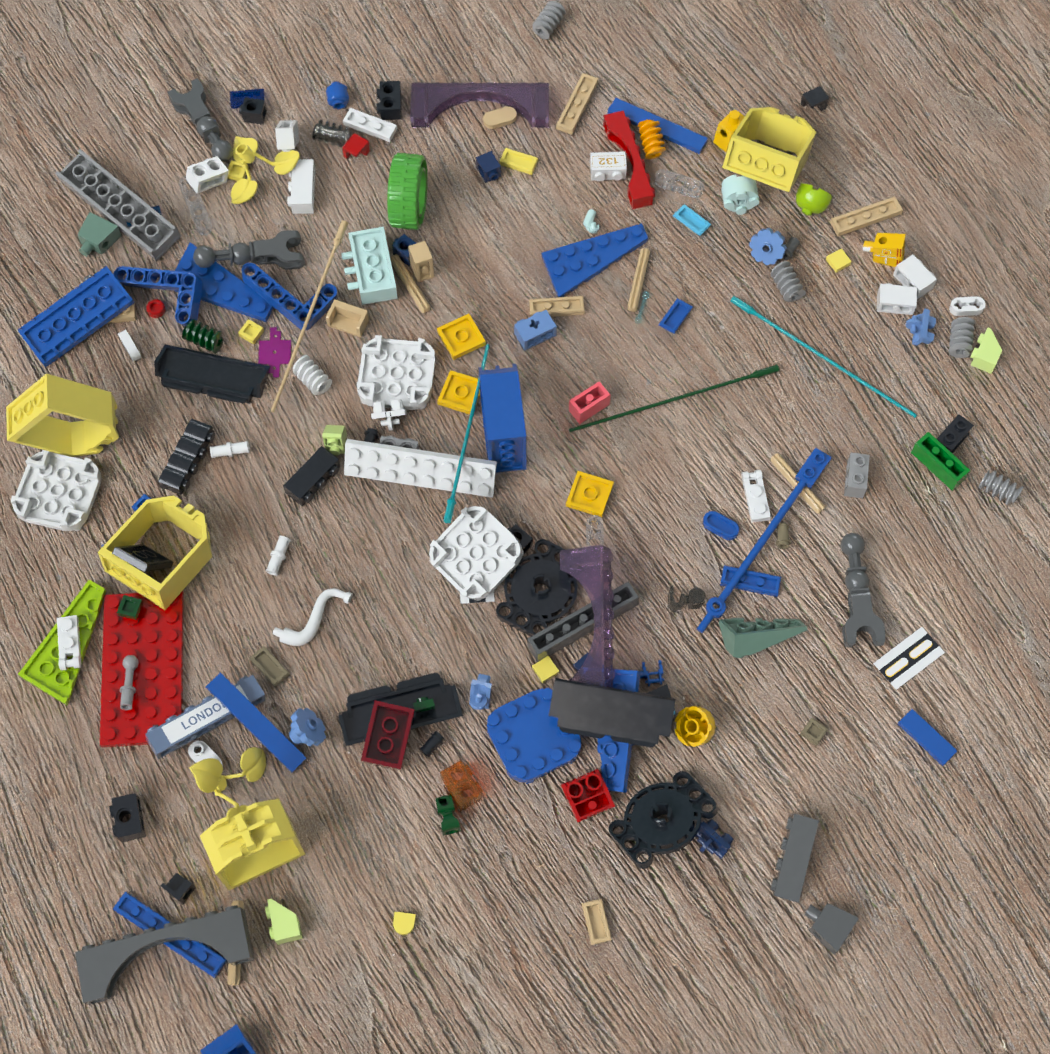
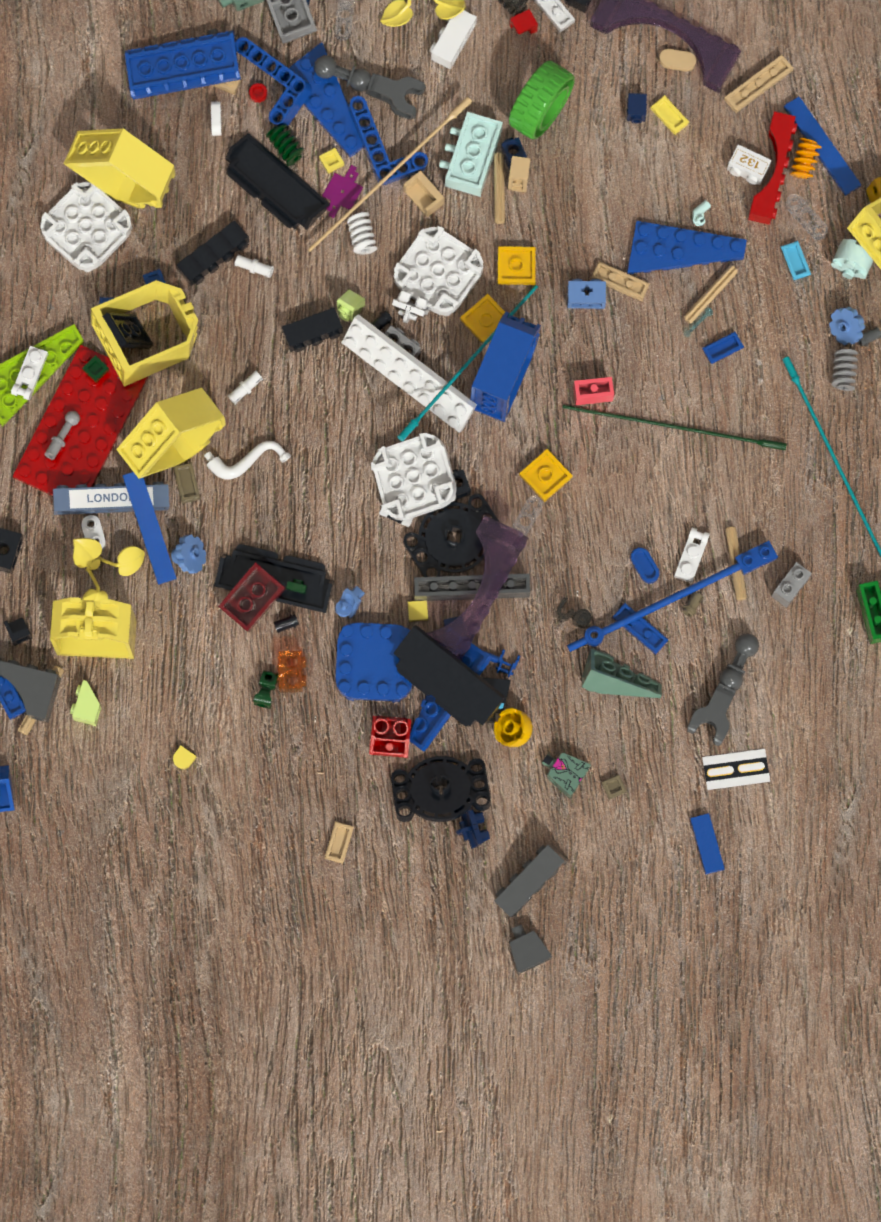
camera: 25 degrees right, 10 degrees up
(232, 623) = (171, 433): none -> light yellow container
(765, 741) = (566, 772): none -> sand green torso

